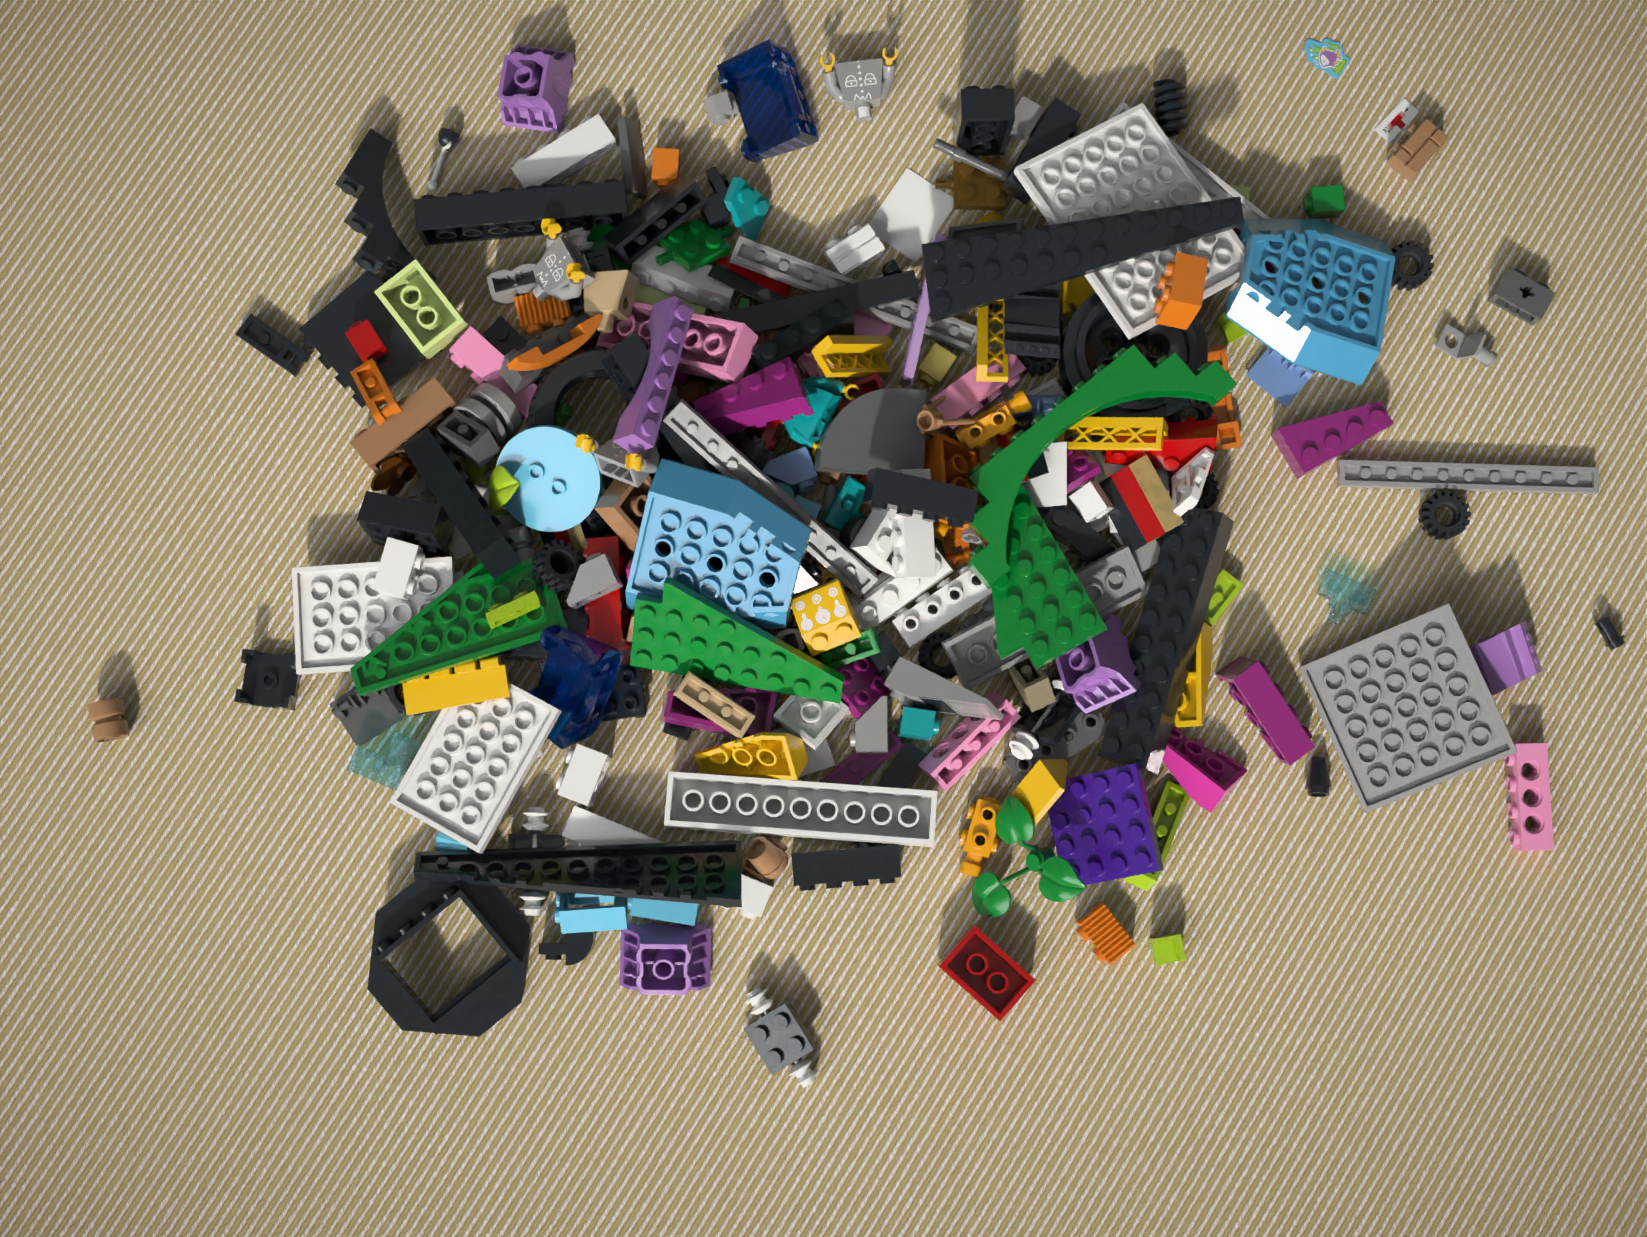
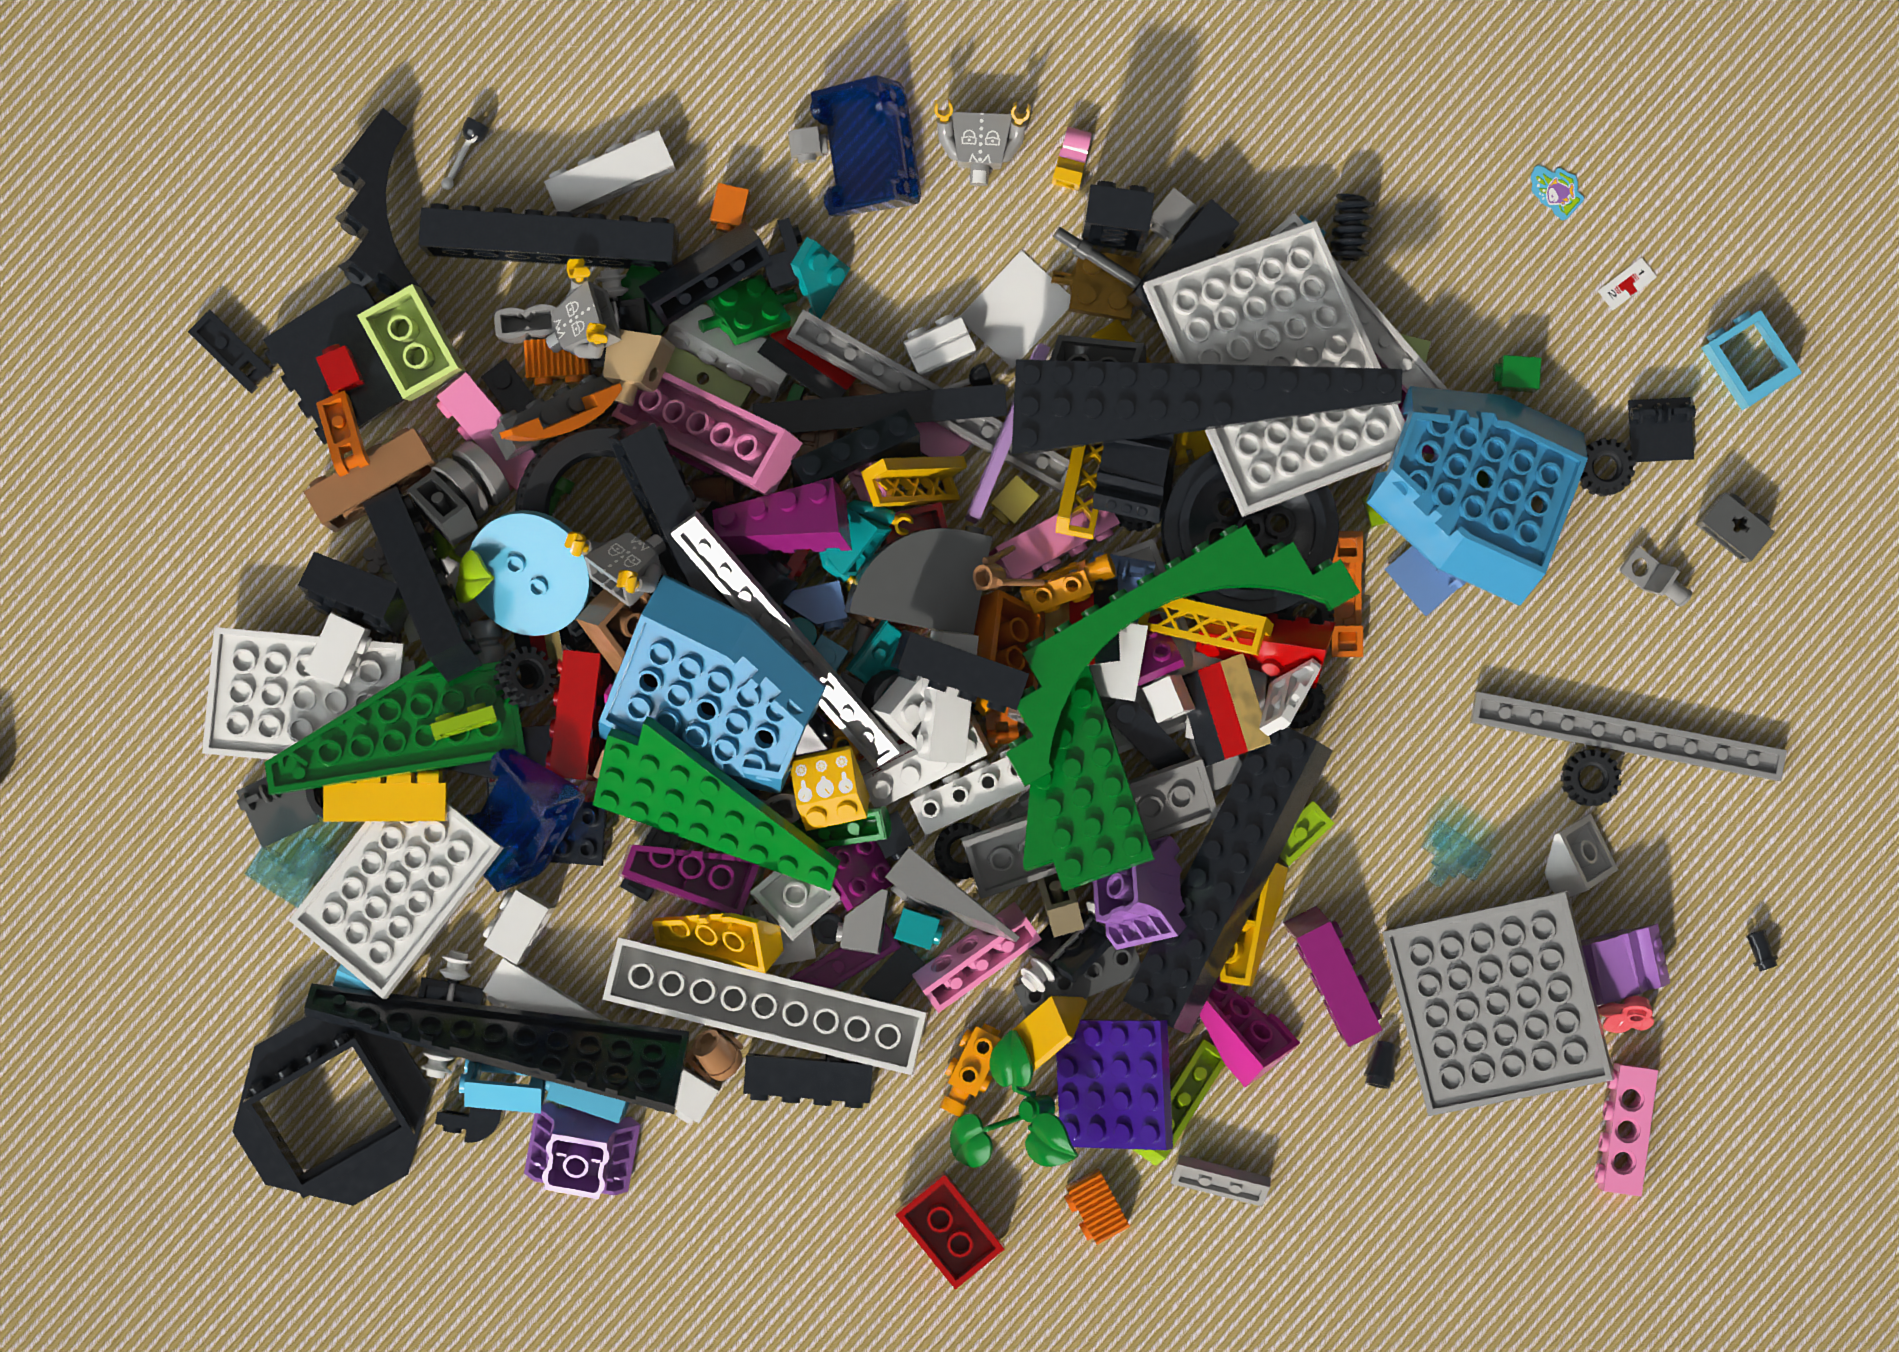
camera: 15 degrees right, 5 degrees up
(268, 680) = (169, 753): black panel -> none
(393, 475) = (348, 533): reddish brown plate -> none
(535, 87) = (589, 83): medium lavender slope -> none
(593, 580) = (564, 702): light grey slope -> none
(632, 157) = (691, 188): dark grey tile -> none
(643, 416) = (649, 524): medium lavender arch -> none
(714, 705) = (682, 870): tan tile -> none
(780, 1037) = (700, 1264): plate -> none
(840, 739) = (826, 928): none -> black tile
(936, 89) = (1072, 159): none -> leg
(1167, 948) = (1167, 1235): lime panel -> none
(1180, 290) = (1311, 471): orange brick -> none
(1203, 894) = (1220, 1180): none -> light grey plate
(1322, 439) = (1463, 664): magenta wedge -> none
(1417, 149) = (1642, 326): medium nougat brick -> none
(1447, 228) = (1661, 429): none -> black hinge
(1447, 581) = (1578, 858): none -> white slope
(1492, 176) = (1728, 374): none -> medium azure window
(1515, 701) = (1634, 1013): none -> coral plate

